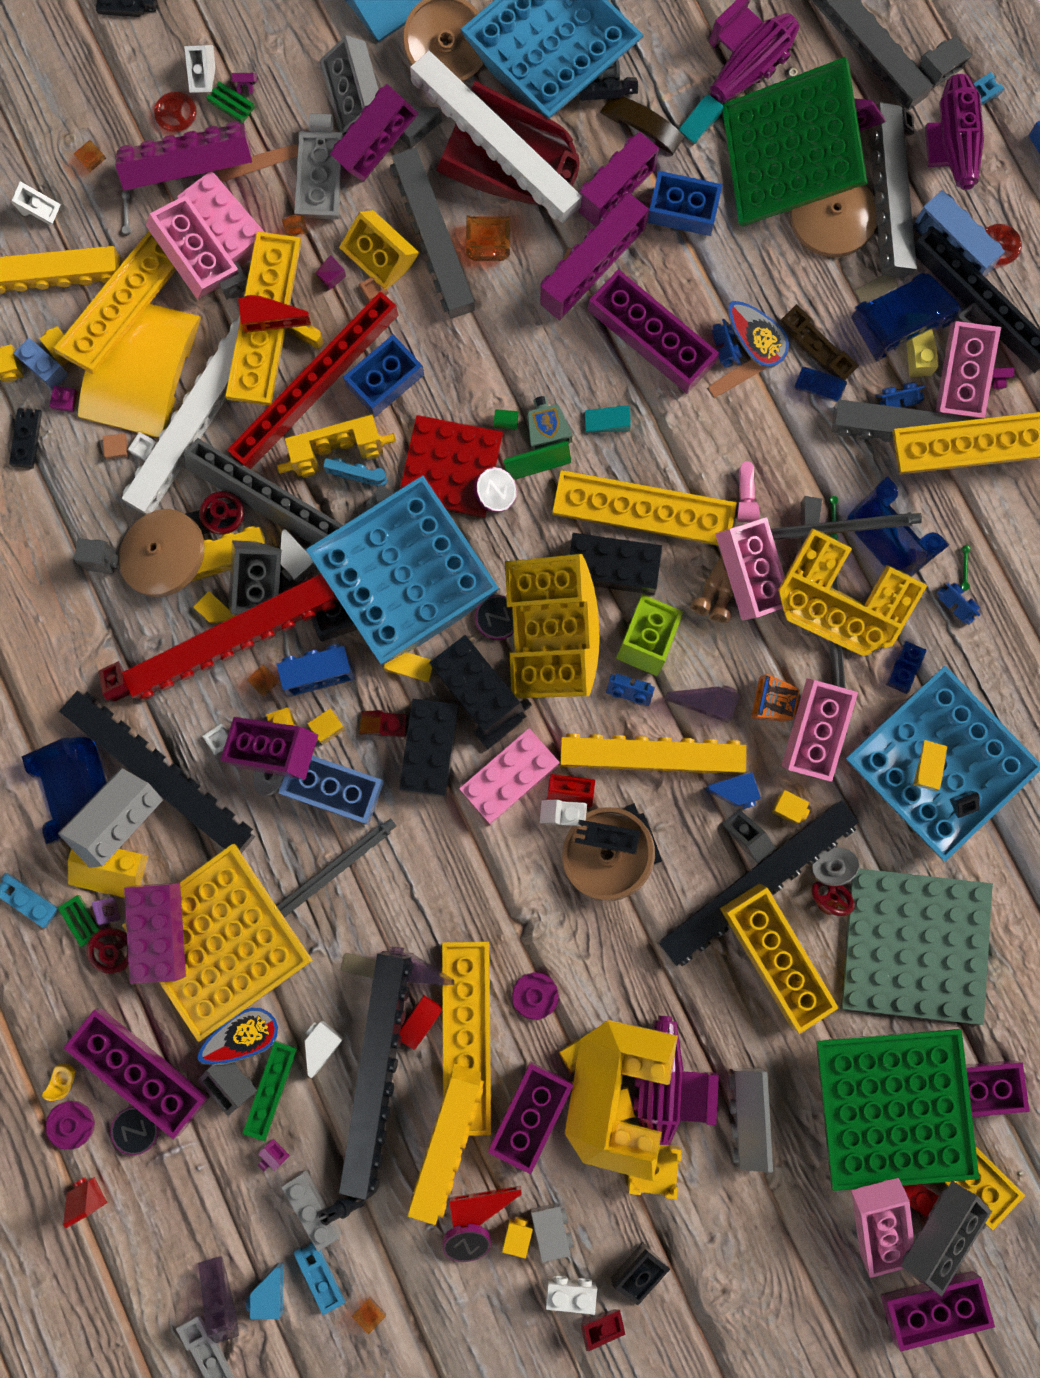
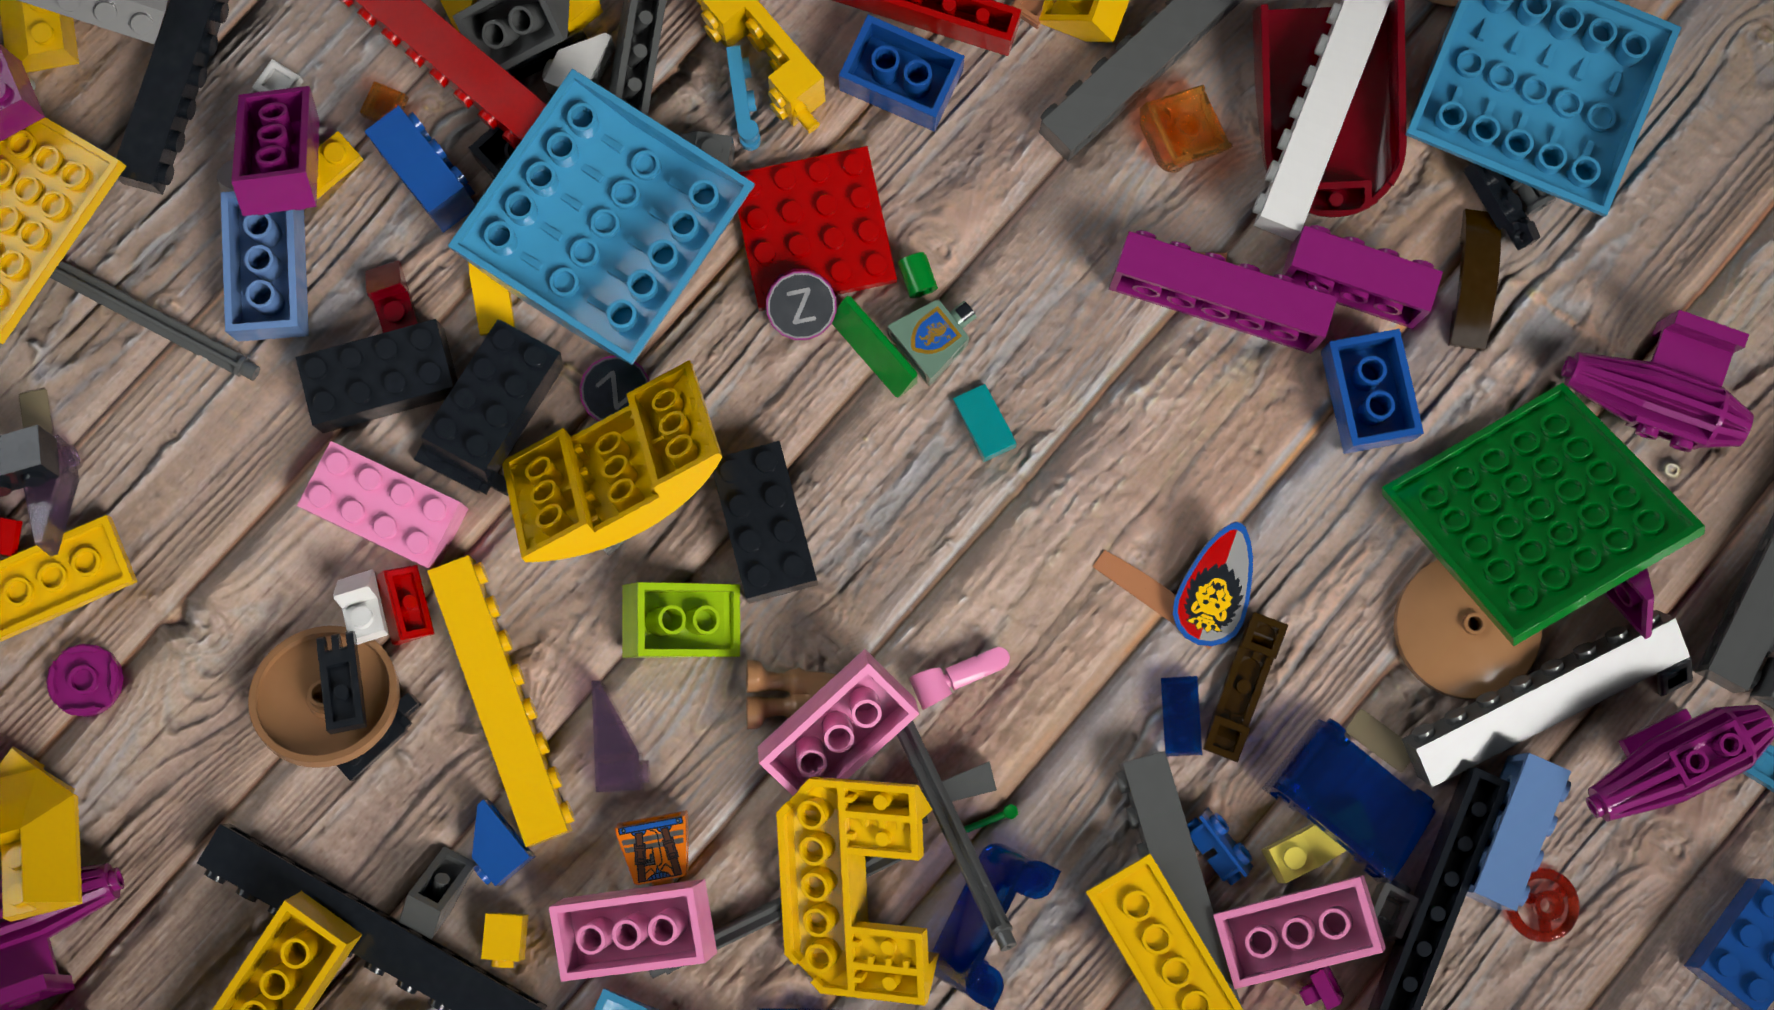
camera: 65 degrees right, 0 degrees up
(326, 726) = (352, 219): yellow brick -> none
(620, 687) = (584, 613): blue hinge -> none
(642, 507) = (870, 530): yellow plate -> none
(652, 331) = (1147, 429): magenta brick -> none
(701, 118) = (1523, 362): teal slope -> none
(731, 351) = (1173, 560): blue hinge -> none

